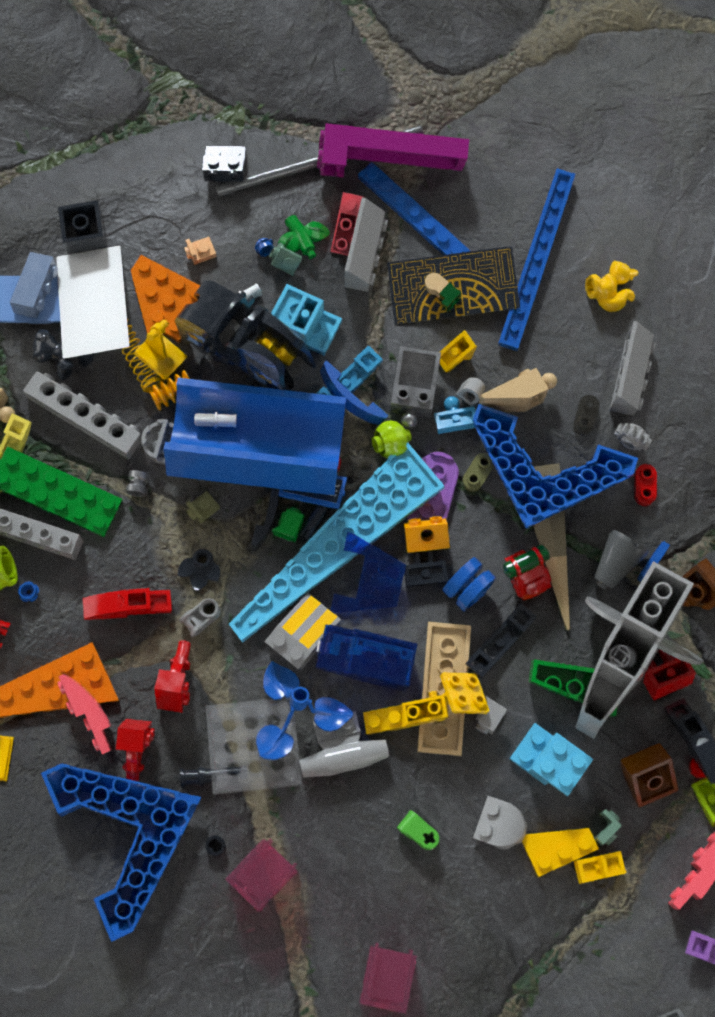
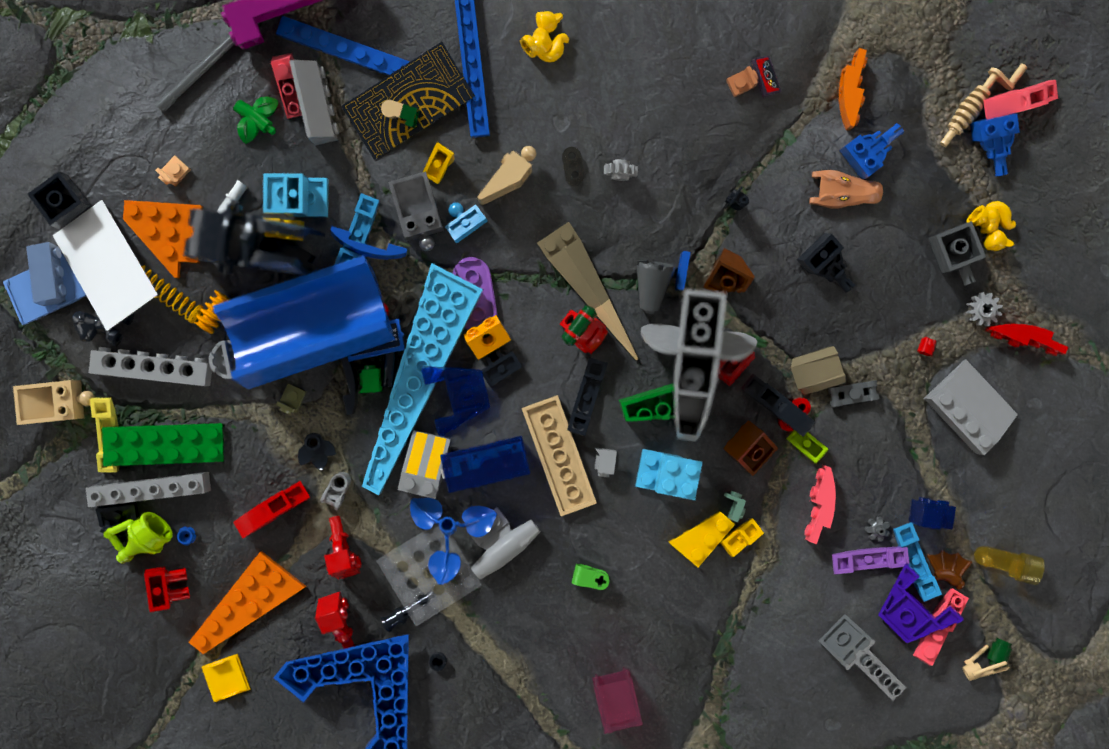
camera: 20 degrees left, 15 degrees up
(83, 702) = (279, 605): coral slope -> none
(137, 483) = (227, 404): flat silver wheel -> none
(159, 352) = (187, 284): yellow plate -> none
(215, 420) = (264, 325): white axle -> none
(224, 163) = (152, 79): plate -> none
(261, 875) = (485, 670): clear pink container -> none
(264, 246) = (227, 142): blue plate -> none
(284, 259) = (251, 146): sand green bracket -> none
(390, 439) = (419, 267): lime plant -> none
(406, 715) = (538, 494): yellow slope -> none
(463, 693) = (576, 458): yellow plate -> none
(472, 587) = (540, 363): blue wheel -> none
(474, 388) = (467, 192): light grey plate -> none
(478, 471) = (505, 260): olive plate -> none
(500, 824) = (651, 541): light grey slope -> none
(540, 496) = (567, 266): blue wedge -> none
(632, 370) = (595, 108): light grey slope -> none
(644, 483) = (648, 205): red plate -> none

